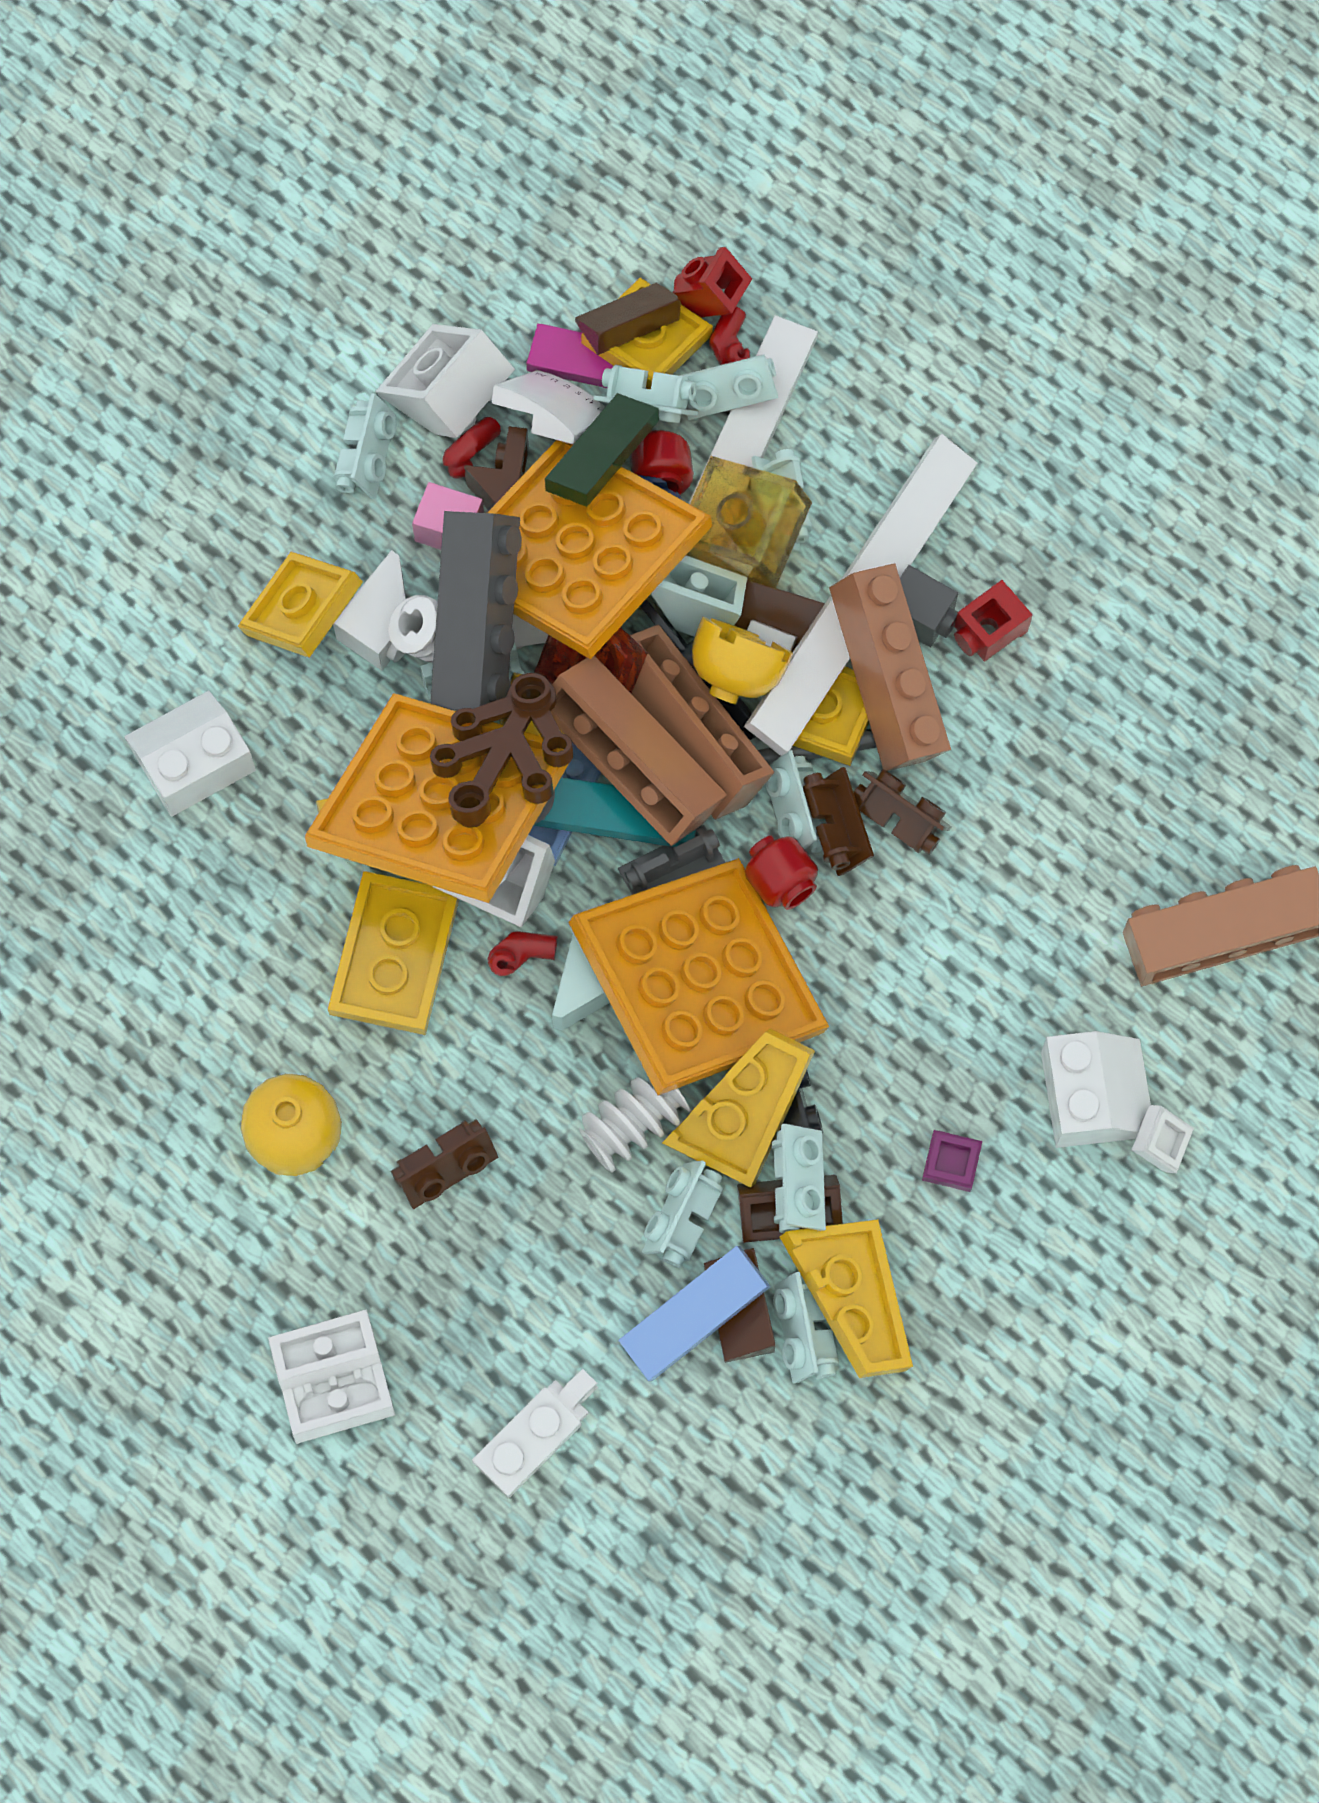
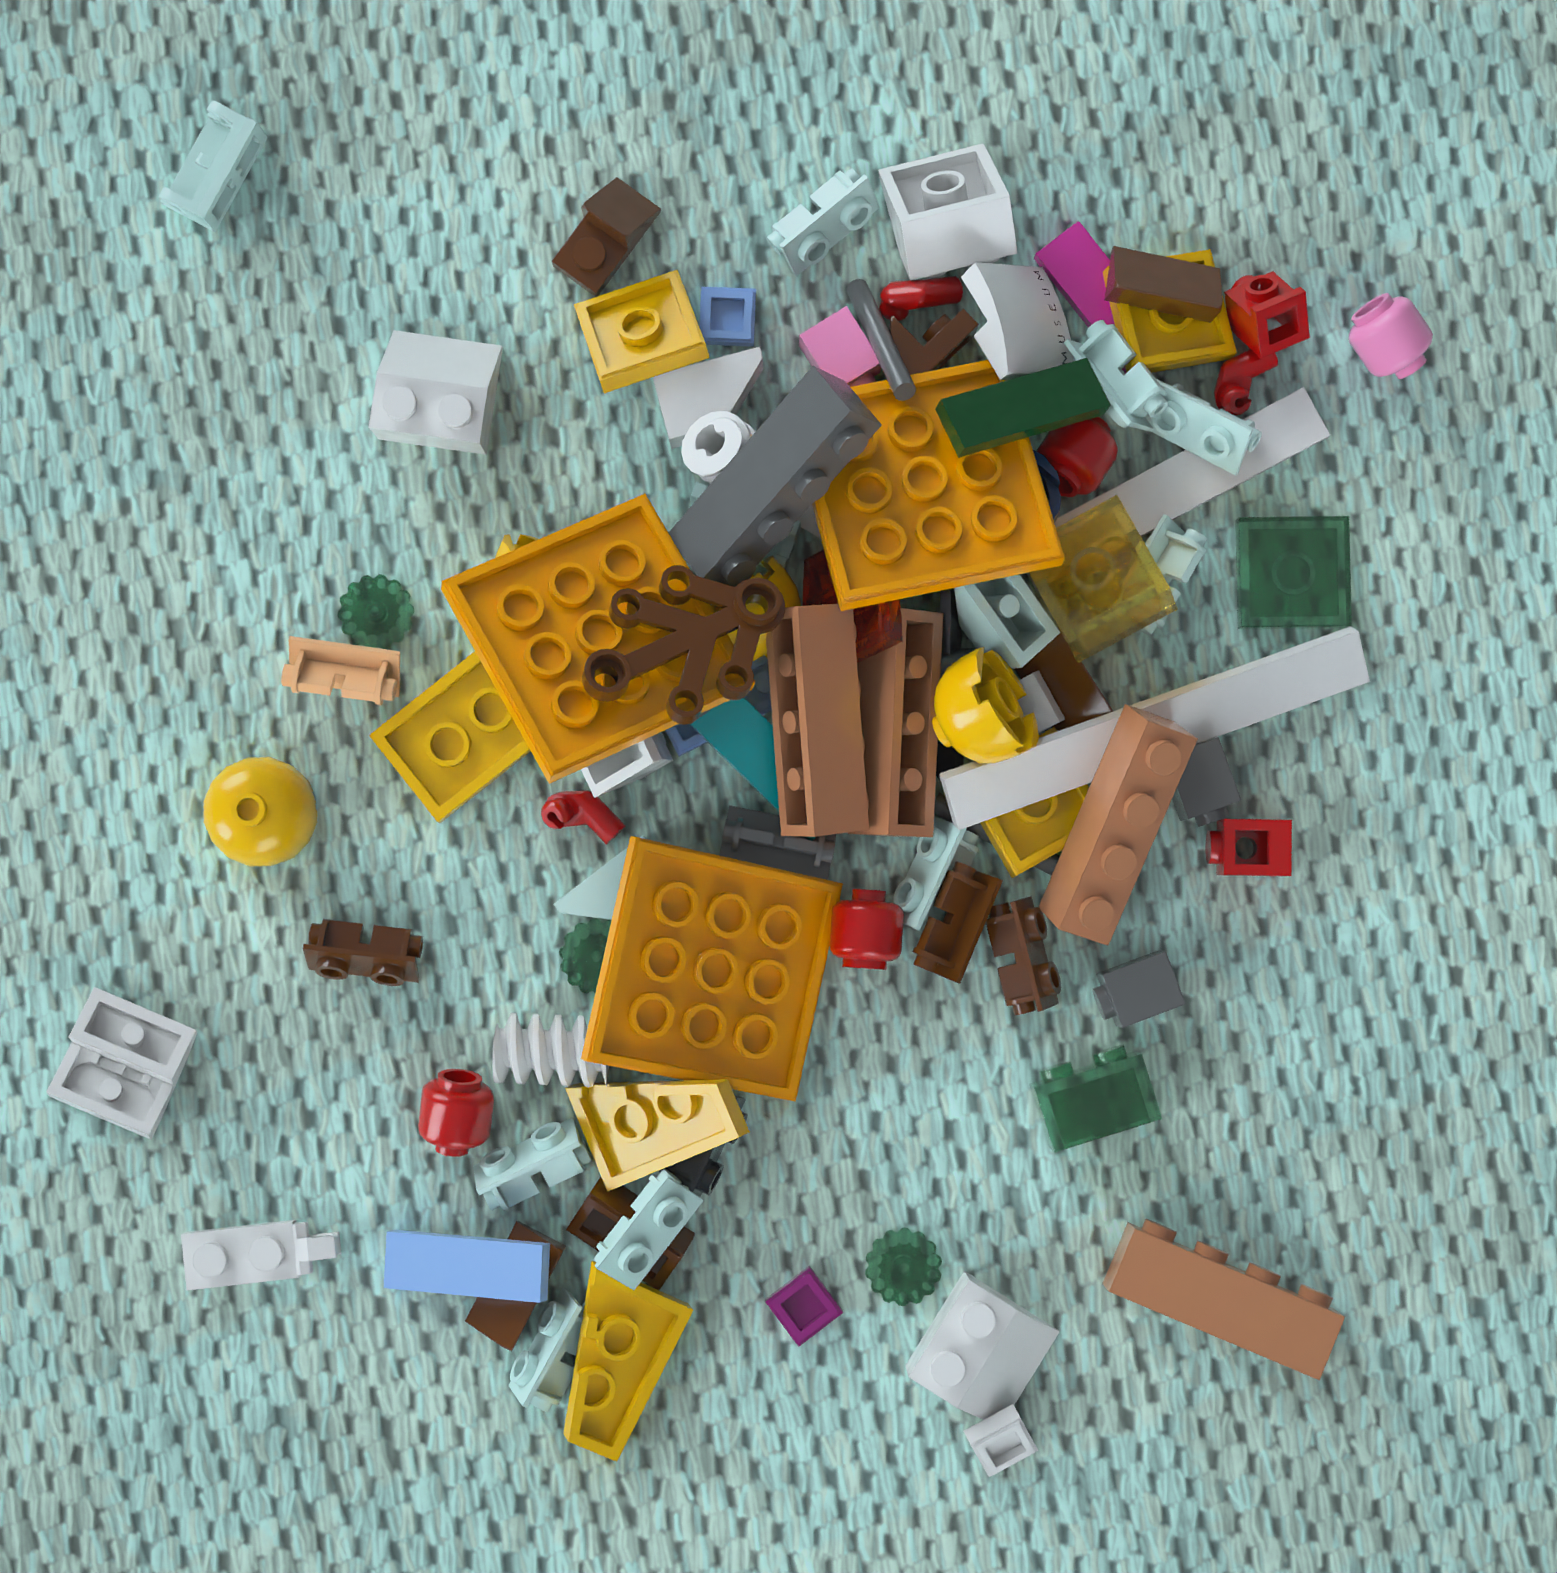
camera: 40 degrees right, 15 degrees up
(223, 568) = (606, 235): none -> reddish brown slope
(263, 931) = (376, 612): none -> clear green piece
(272, 980) = (355, 669): none -> light nougat hinge
(352, 552) = (728, 316): none -> light blue tile
(471, 485) = (881, 340): none -> dark grey bar
(599, 1216) = (456, 1112): none -> red head
(605, 1043) = (584, 954): none -> clear green piece
(804, 242) = (1390, 336): none -> bright pink head
(868, 435) = (1293, 572): none -> clear green tile
(996, 769) = (1138, 989): none -> dark grey brick
(997, 1081) = (903, 1266): none -> clear green piece
(1029, 863) = (1094, 1098): none -> clear green brick

